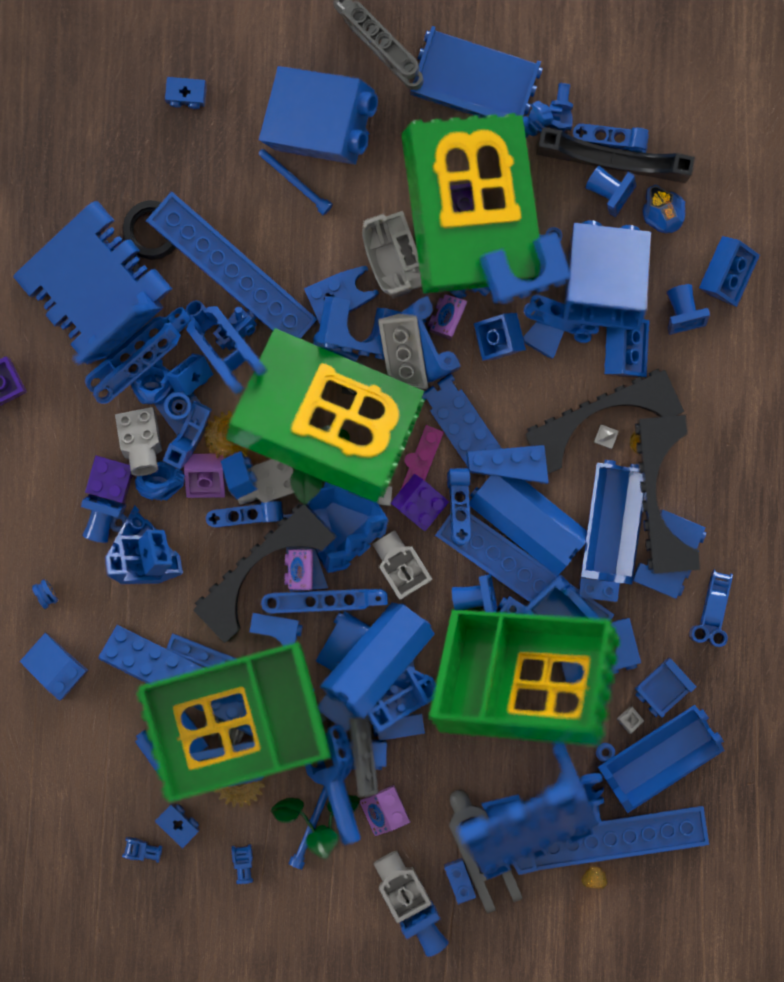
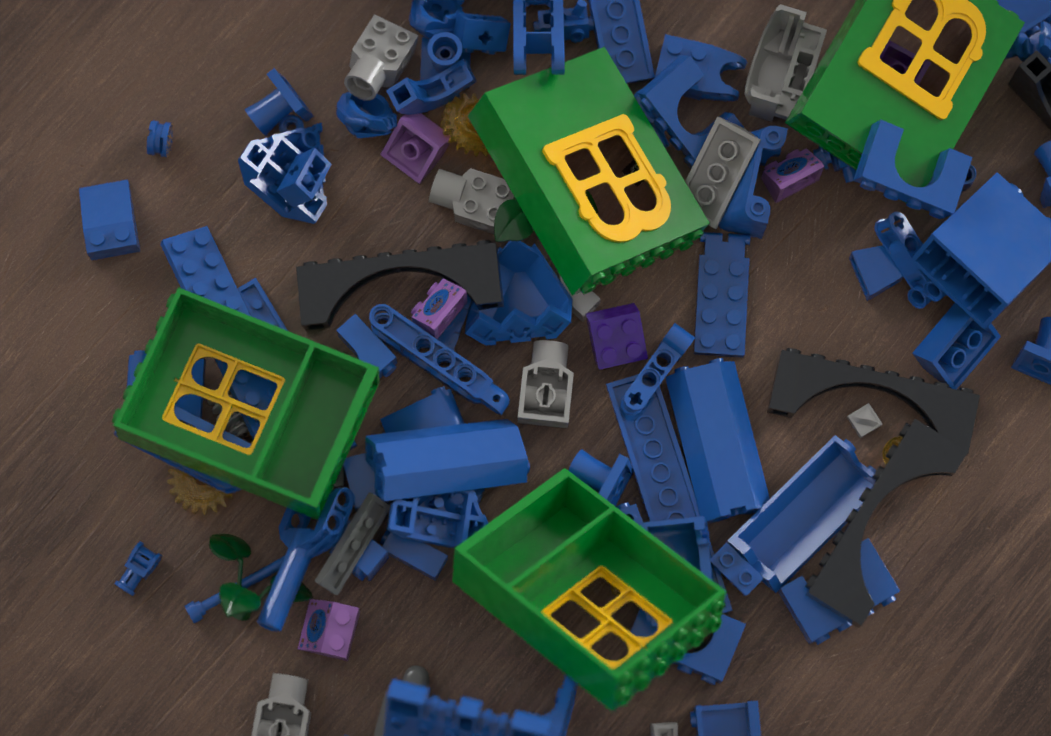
camera: 35 degrees right, 10 degrees down
(109, 479) = (316, 76): dark purple brick -> none
(141, 850) = (41, 470): blue connector -> none
(167, 823) = (95, 464): blue brick -> none
(239, 474) = (452, 164): blue brick -> none
(266, 513) = (452, 227): blue piece -> none
(422, 459) = (661, 294): magenta hinge -> none
(499, 336) = (830, 231): blue brick -> none
(517, 463) = (747, 368): blue wing -> none
(714, 609) = (842, 688): blue piece -> none

